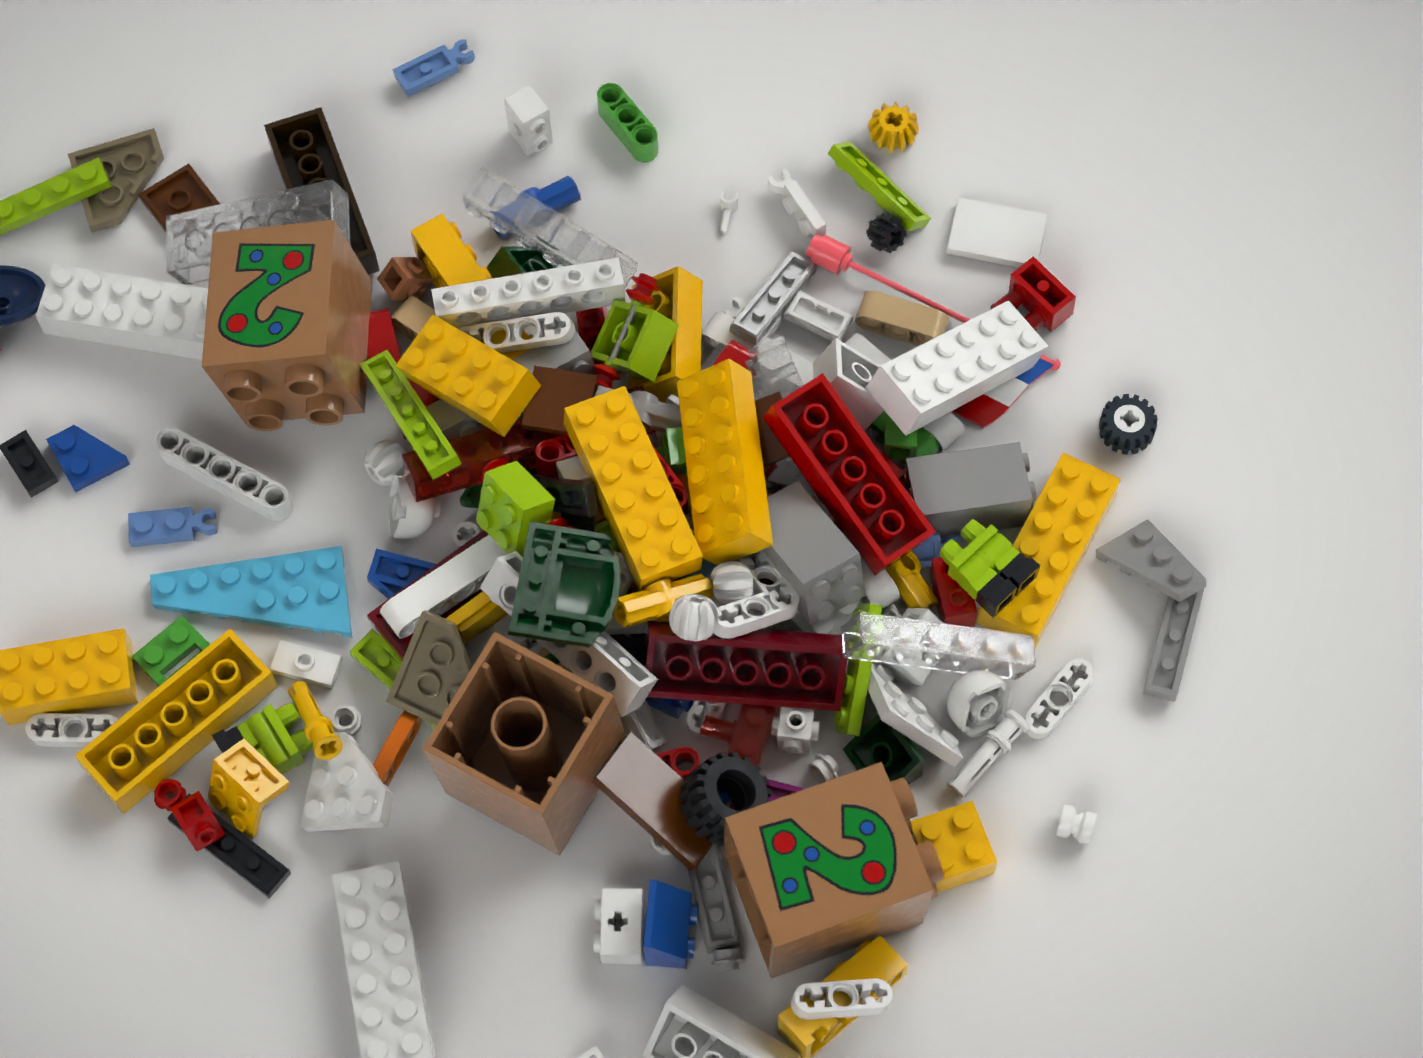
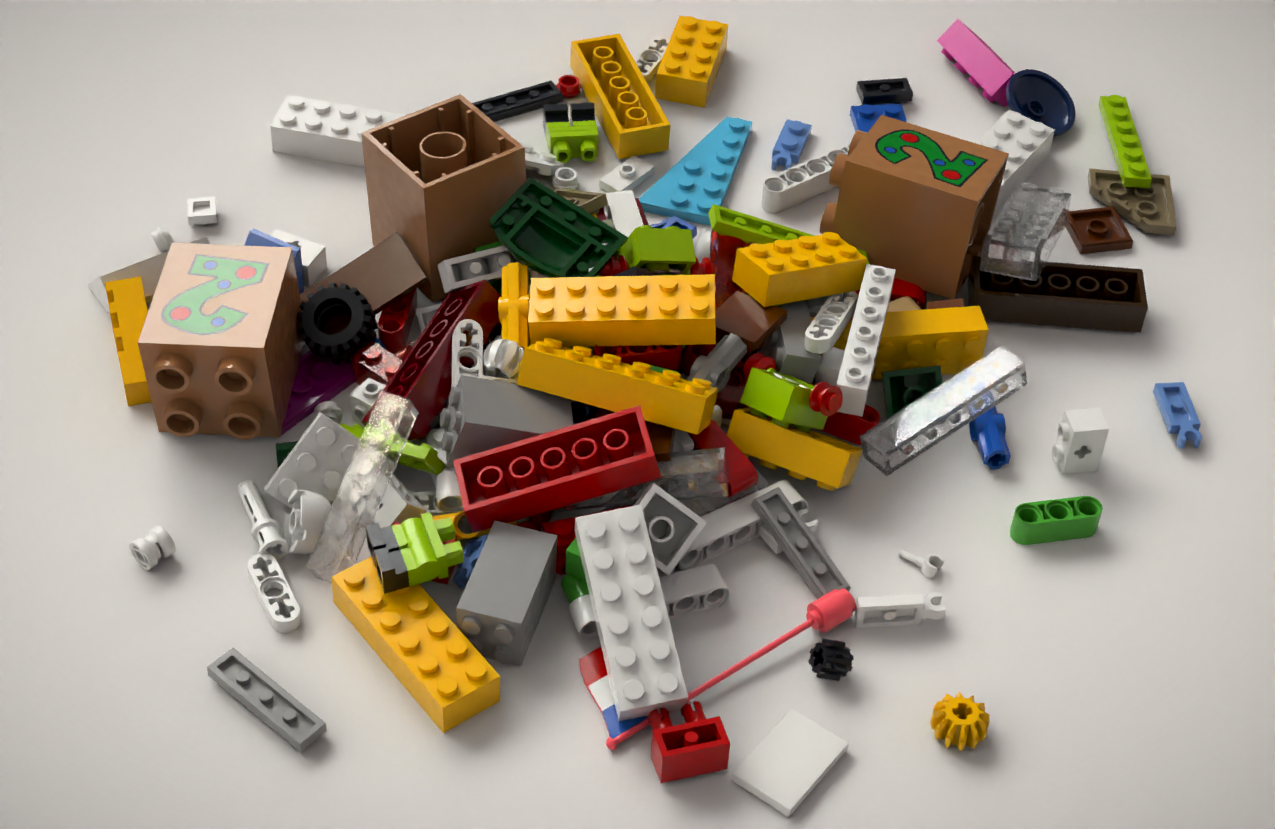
camera: 110 degrees right, 20 degrees down
(169, 649) = (685, 118): bright green plate -> none
(197, 821) = (535, 79): red bracket -> none
(244, 784) = (541, 100): yellow bracket -> none
(317, 728) = (559, 147): yellow pin -> none
(694, 617) = (479, 303): white piece -> none
(818, 317) = (765, 578): white plate -> none
(851, 987) = (123, 305): white beam -> none
(878, 185) = (892, 680): lime plate -> none
(900, 318) = (726, 636): tan beam -> none
(958, 843) = (197, 458): yellow brick -> none
(1124, 434) = (513, 777): black wheel -> none
(1154, 559) = (349, 712): light grey wing -> none

